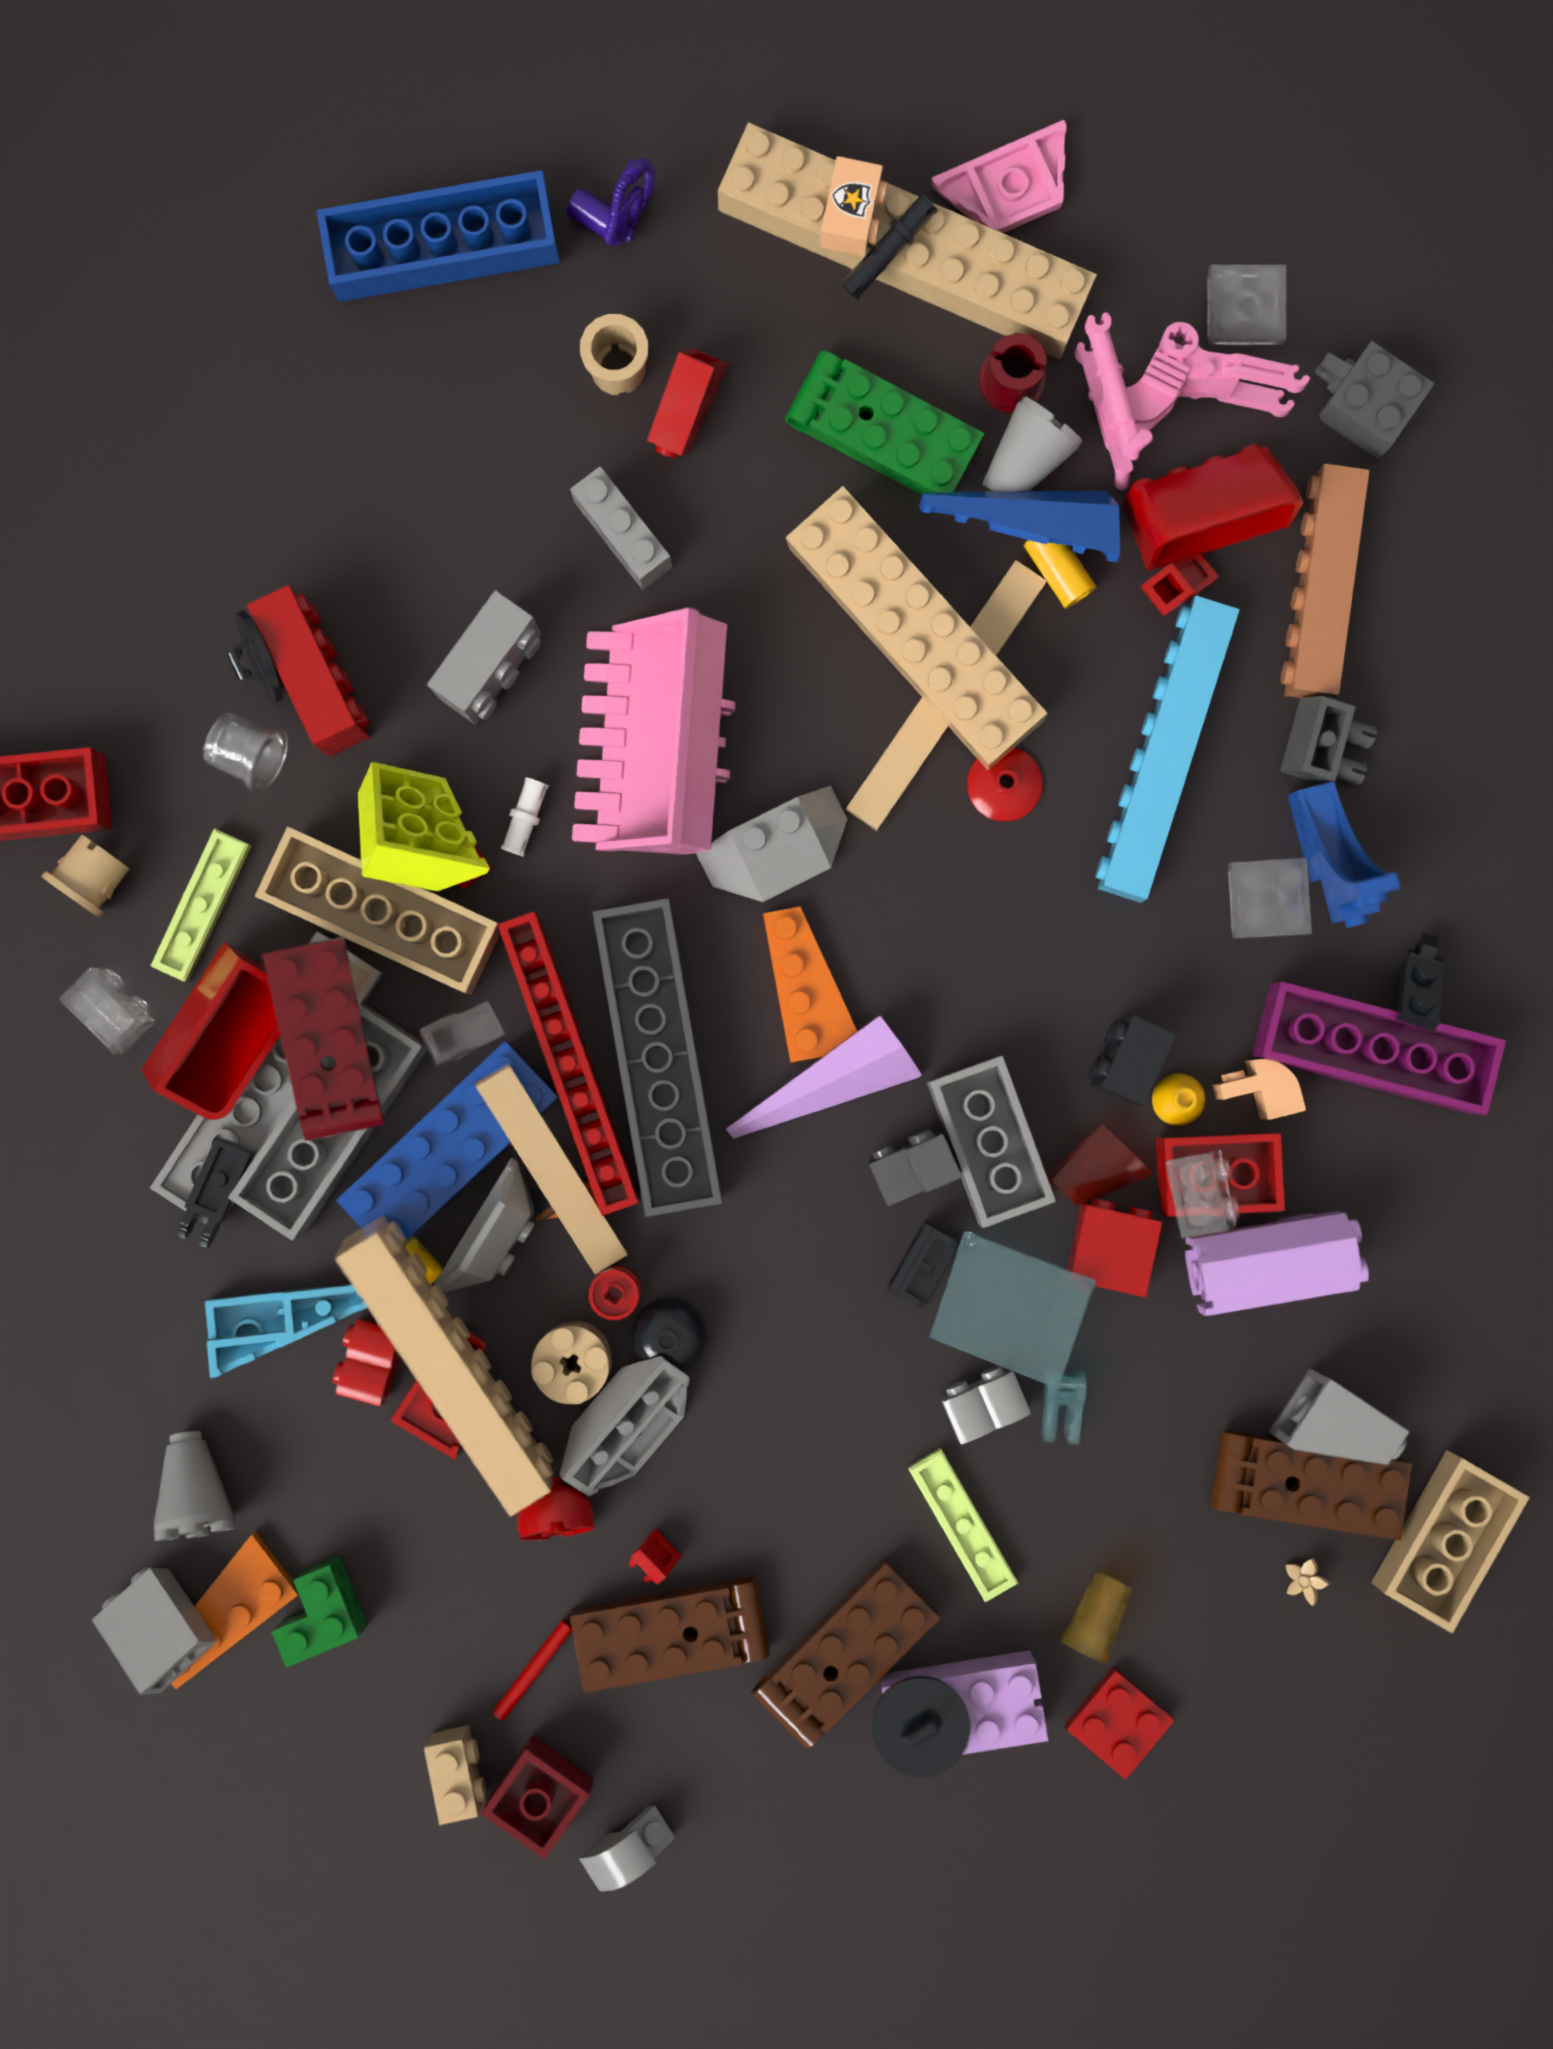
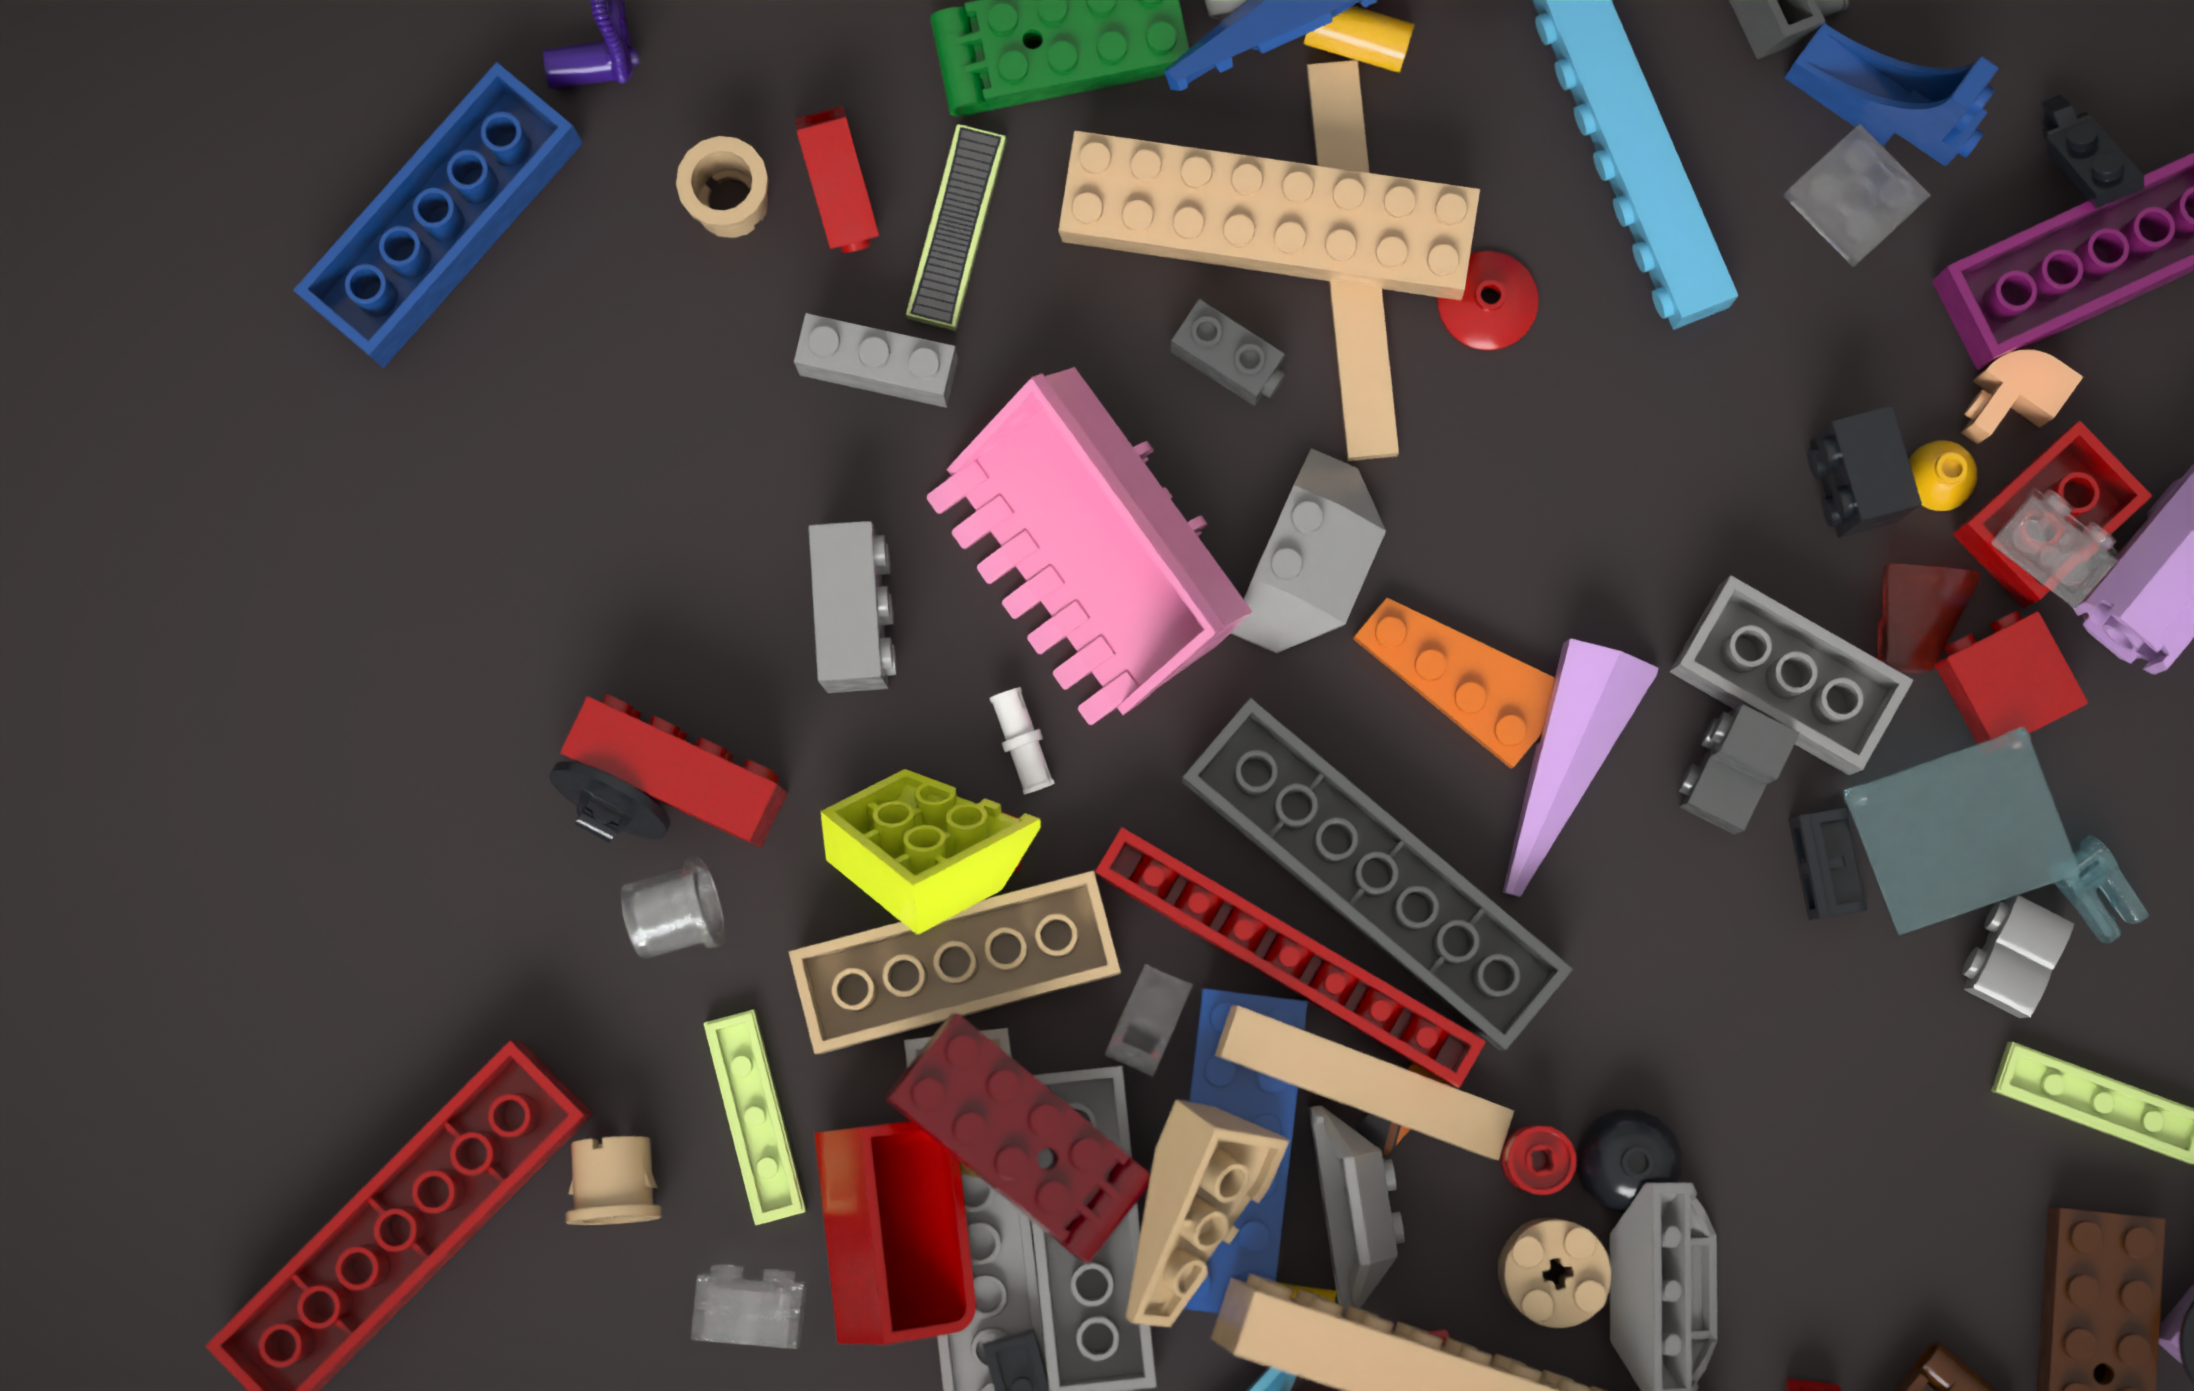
camera: 35 degrees left, 5 degrees down
(404, 1150) = (1197, 1189): none -> tan wedge
(733, 488) = (956, 227): none -> tile
(827, 691) = (1229, 353): none -> dark grey brick

